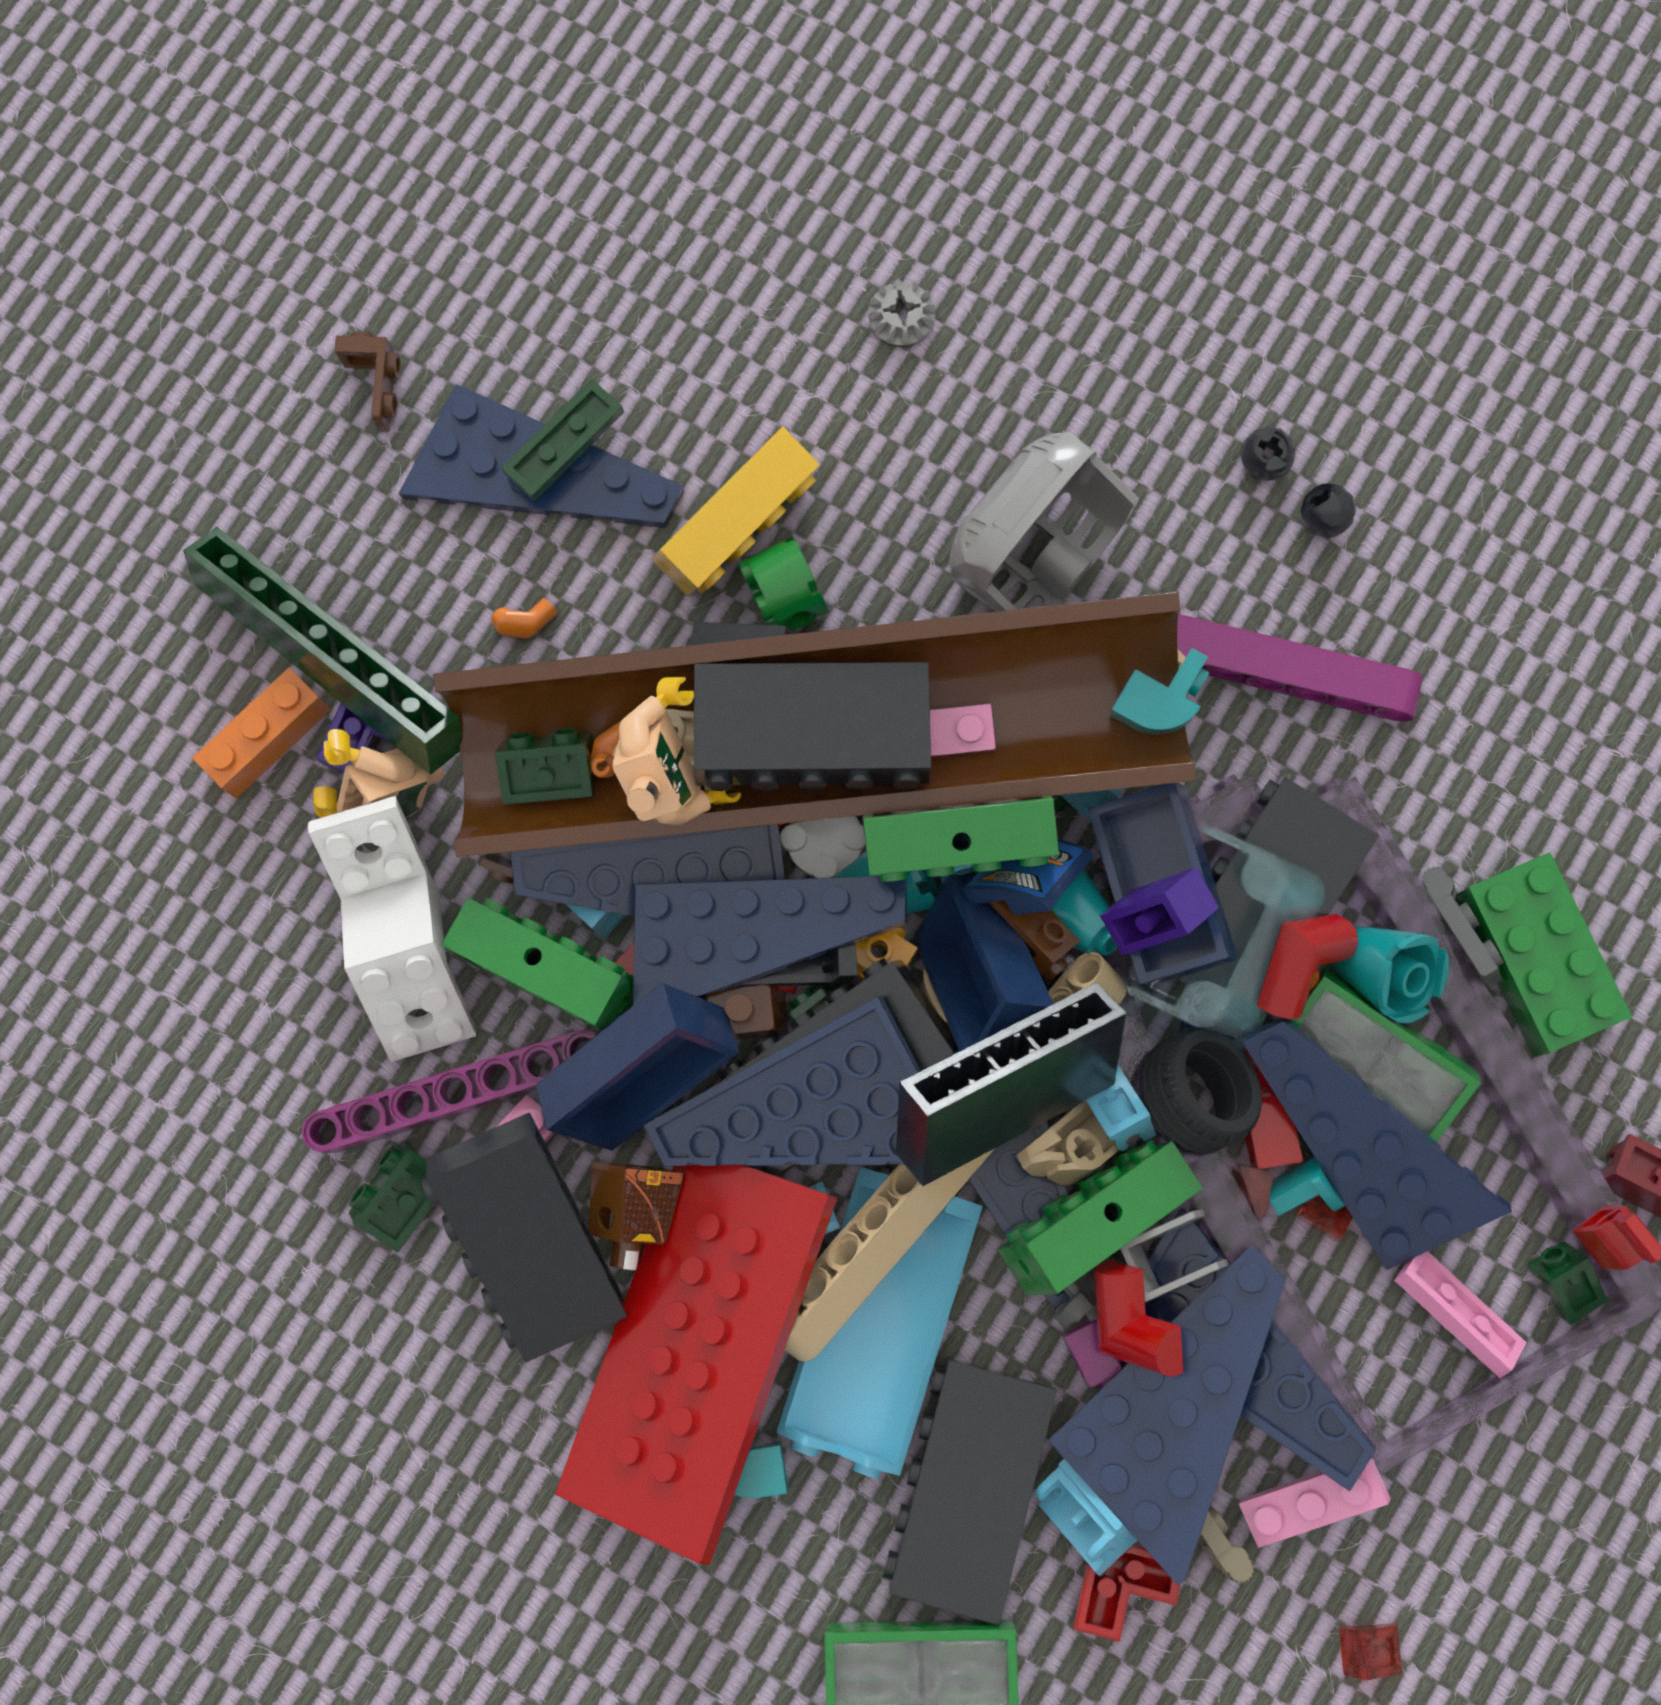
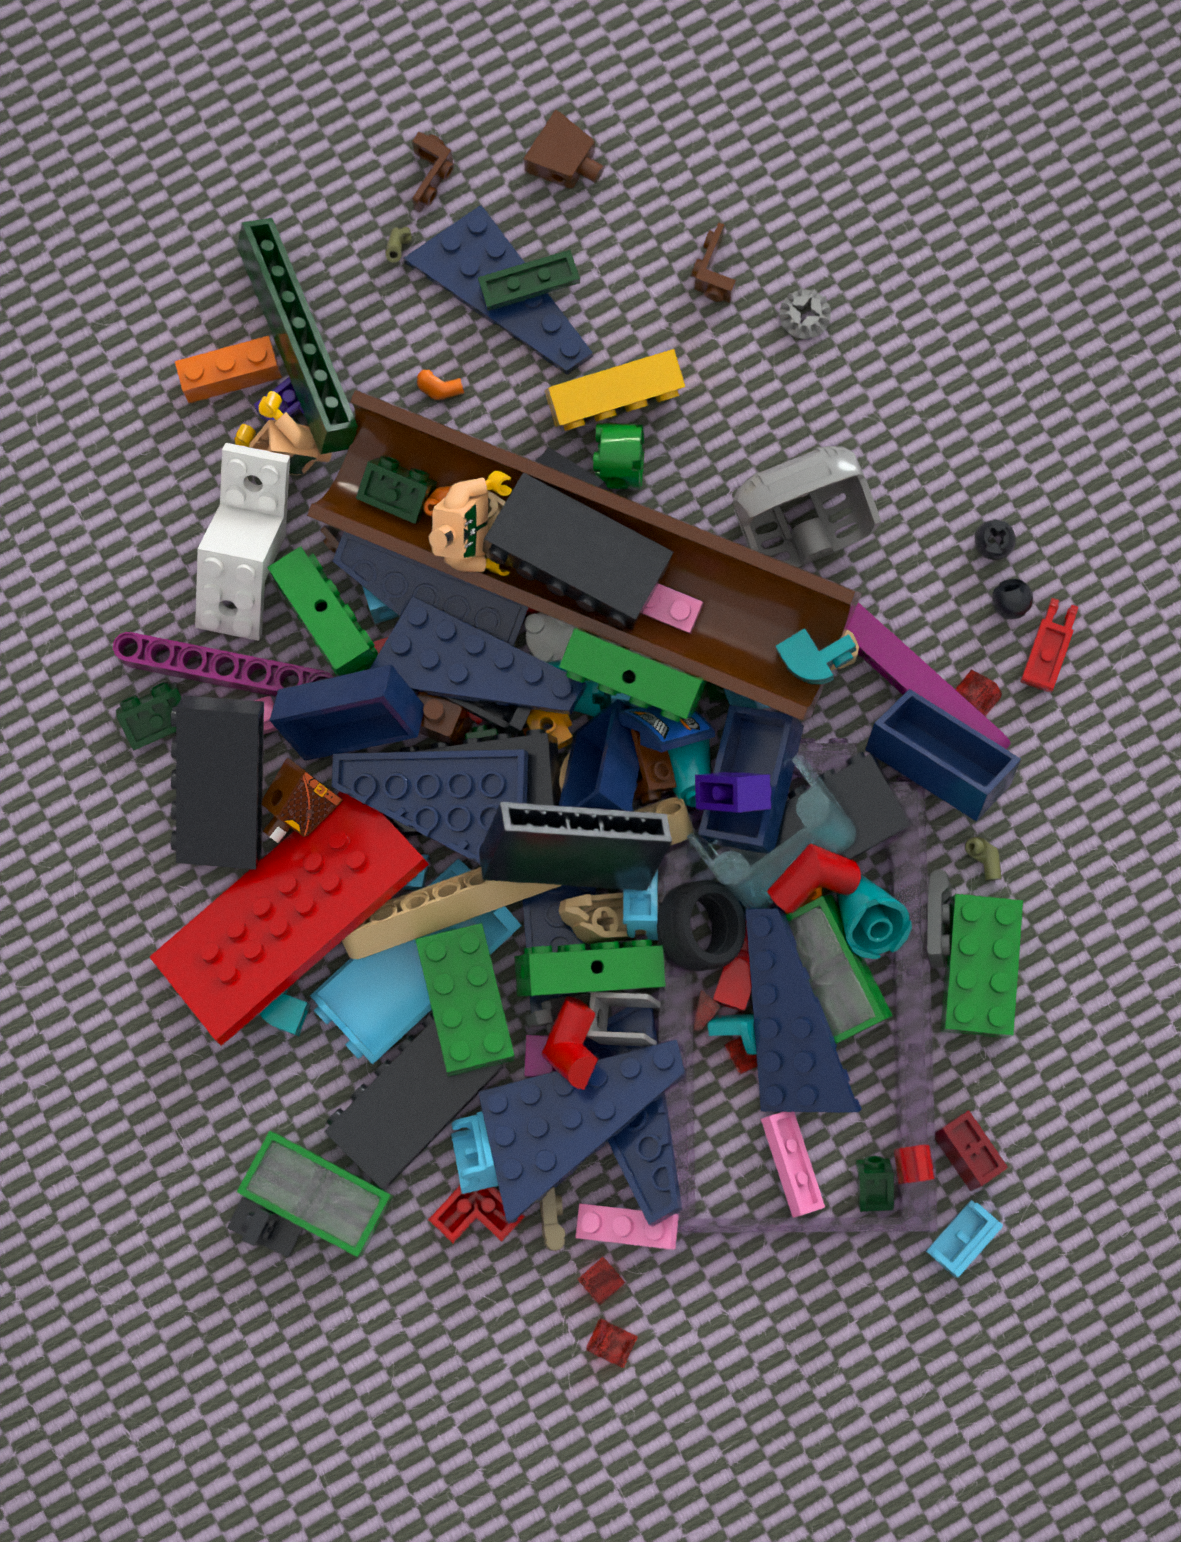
camera: 25 degrees right, 0 degrees up
(378, 476) = (394, 246): none -> olive arm
(519, 275) = (562, 153): none -> reddish brown torso
(775, 334) = (714, 285): none -> reddish brown bracket
(972, 1339) = (465, 1000): none -> green brick
(1315, 1581) = (601, 1280): none -> clear red slope
(1349, 636) = (979, 691): none -> clear red slope
(1362, 732) = (942, 754): none -> dark blue piece
(1400, 544) = (1049, 649): none -> red hinge
(1468, 821) = (987, 855): none -> olive arm

